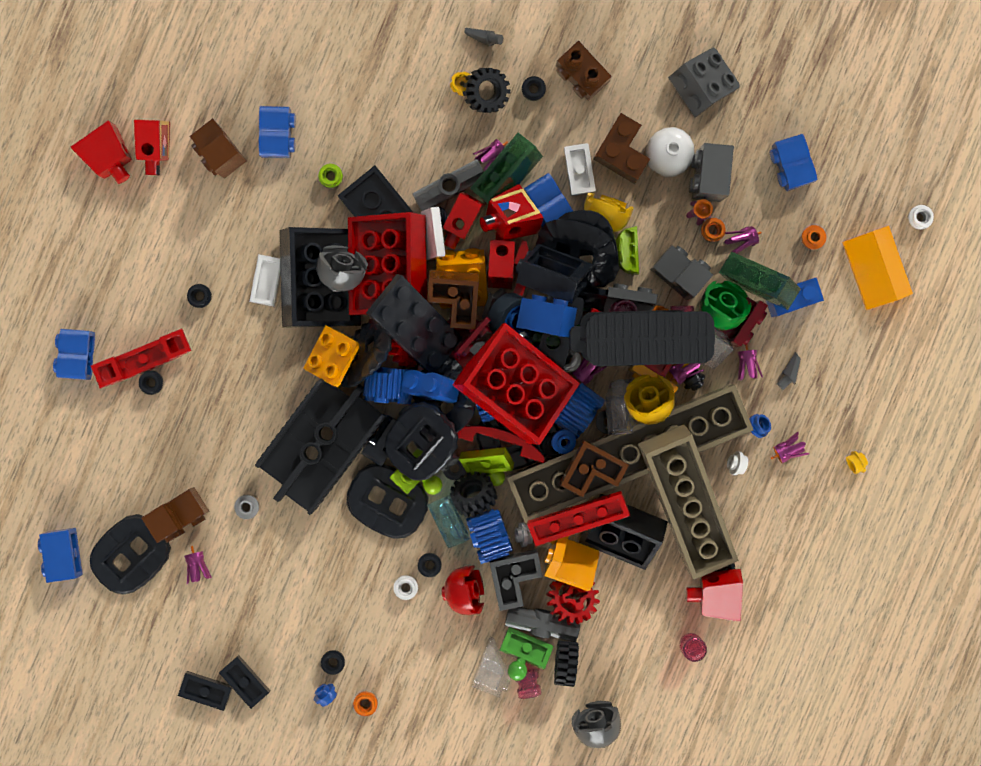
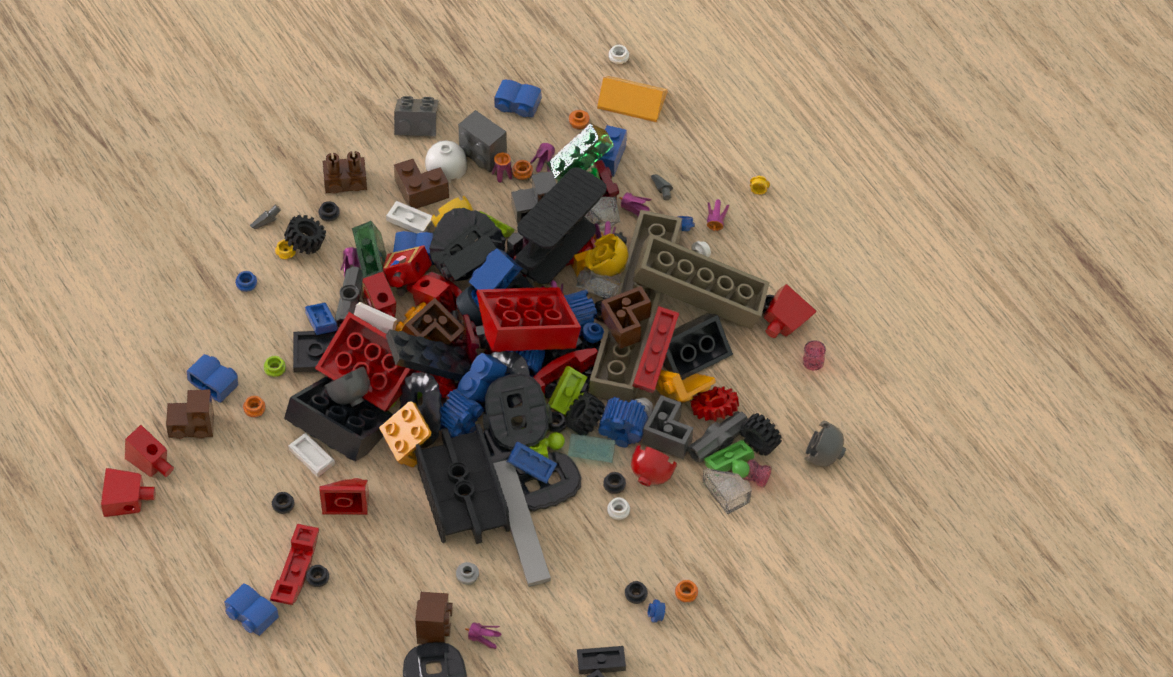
camera: 60 degrees left, 35 degrees down
(240, 351) = (345, 497): none -> red slope
(268, 191) = (254, 401): none -> orange plate
(326, 516) = (522, 526): none -> light grey tile
(385, 487) = (531, 462): none -> blue plate
(401, 68) = (246, 276): none -> blue plate
(407, 178) = (321, 318): none -> blue plate

